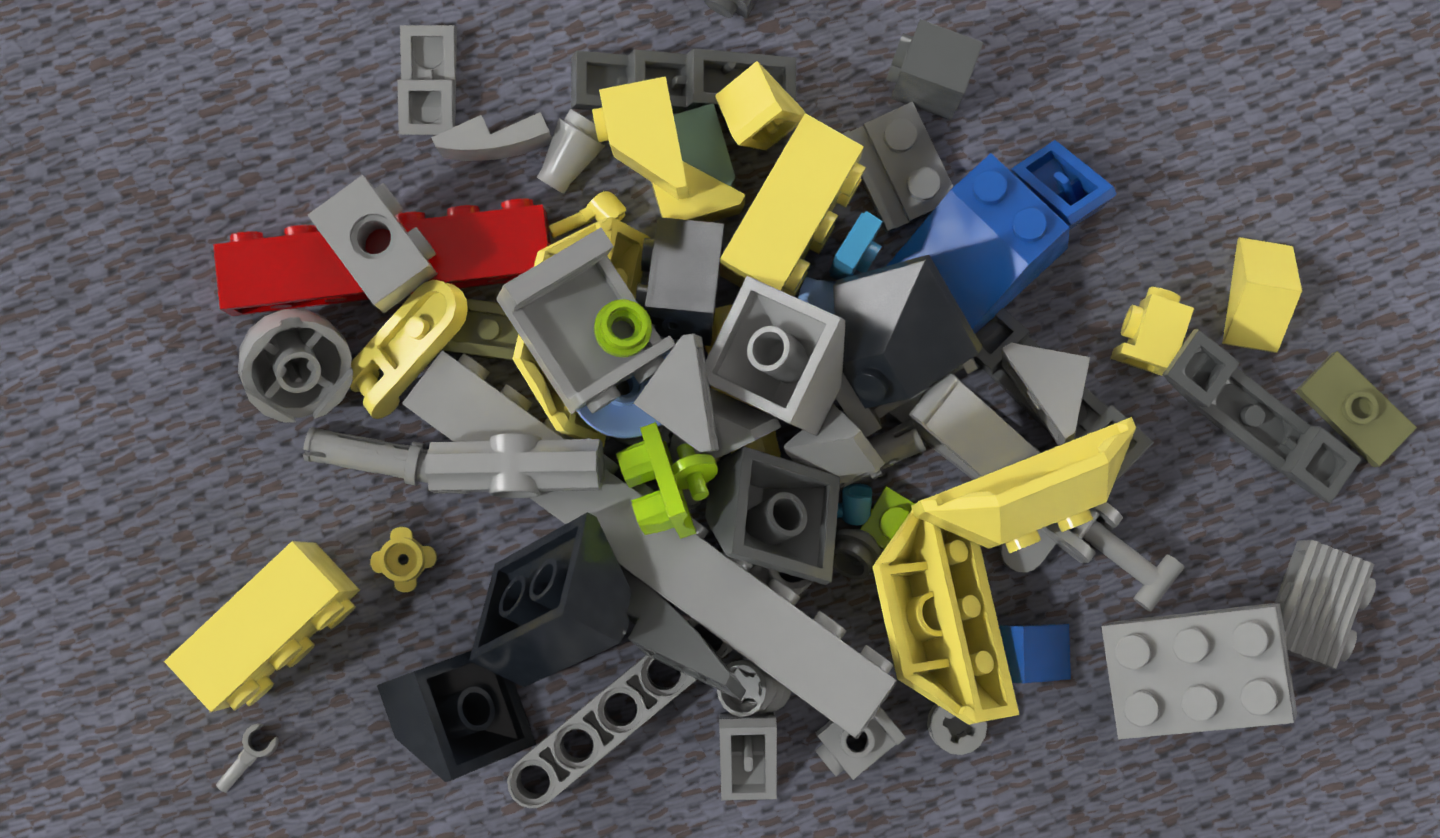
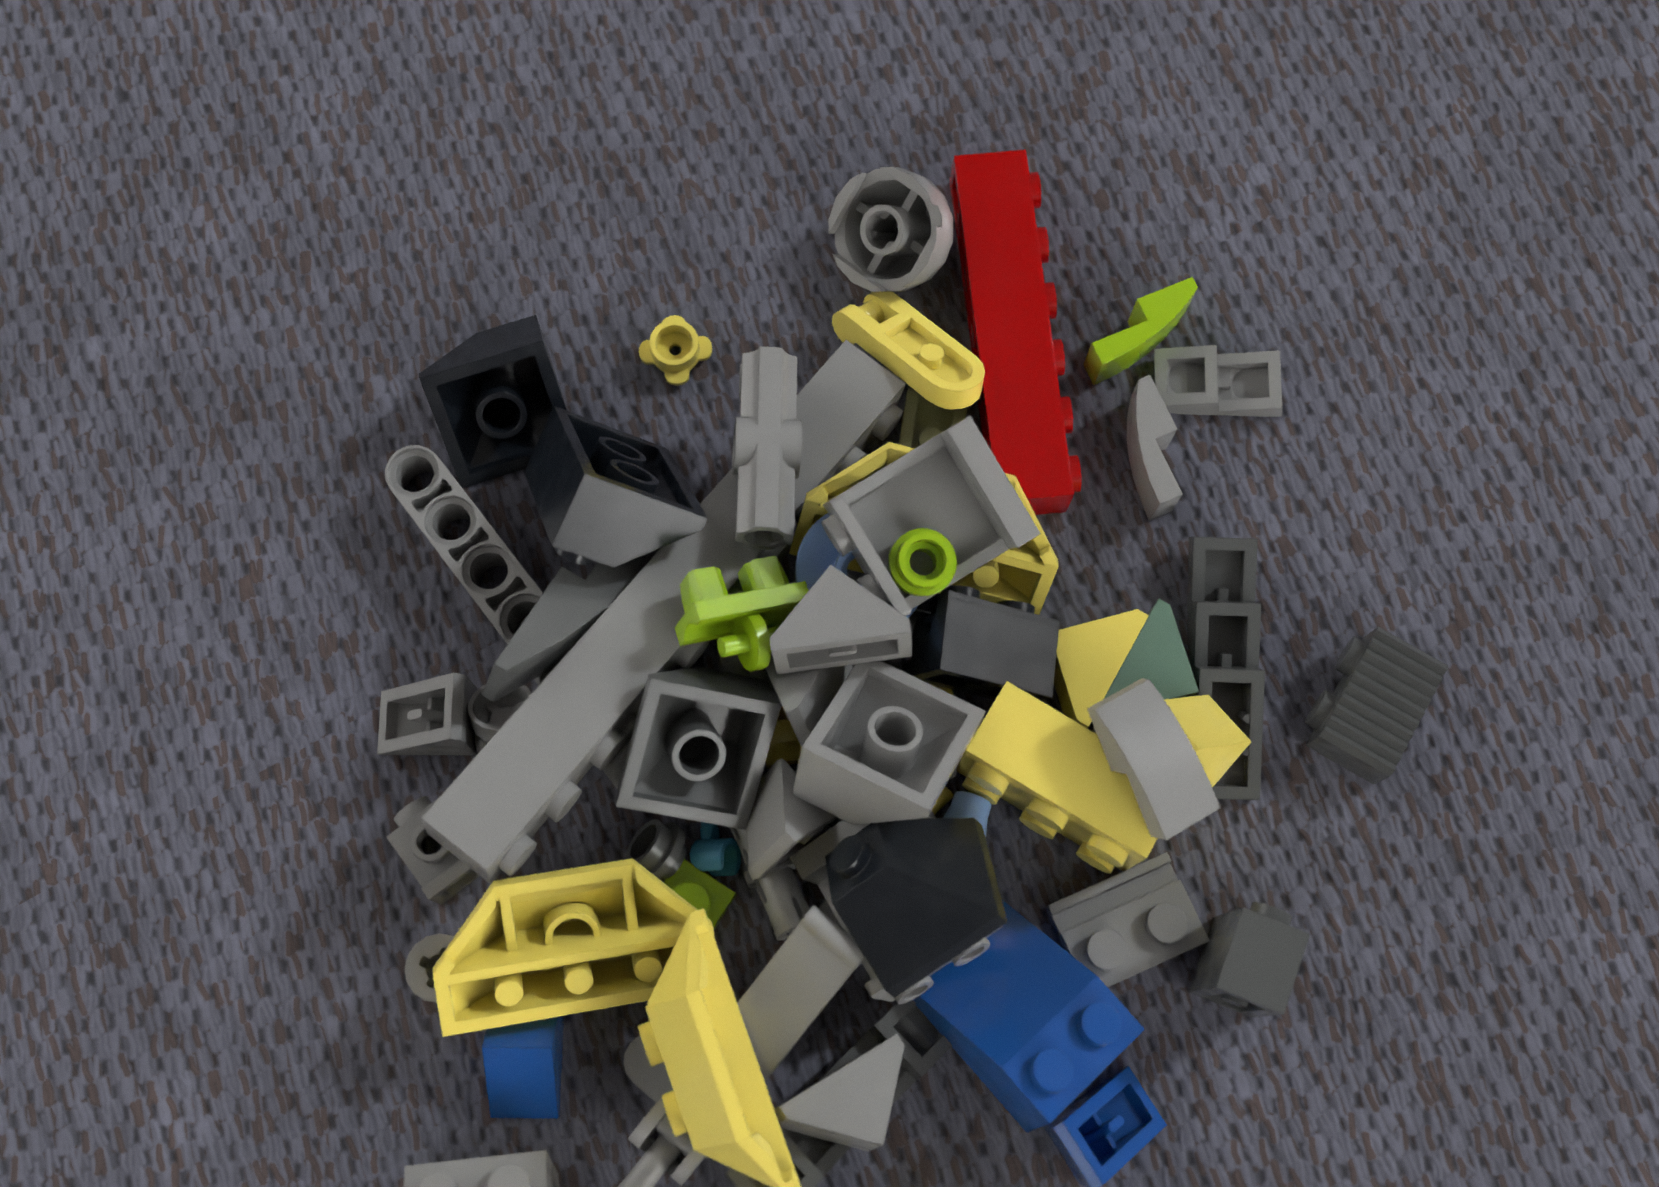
camera: 90 degrees right, 10 degrees down
(245, 758) = (472, 192): light grey hand -> none
(264, 627) = (605, 197): light yellow brick -> none
(347, 223) = (1042, 275): light grey brick -> none
(367, 454) = (796, 301): light grey pin -> none
(376, 137) = (1149, 325): none -> lime slope
(570, 151) = (1140, 535): light grey cone -> none
(600, 207) = (1073, 568): light yellow hand -> none
(643, 132) = (1162, 604): light yellow slope -> none
(785, 135) = (1160, 763): none -> light grey slope
(858, 248) = (1024, 857): dark azure plate -> none

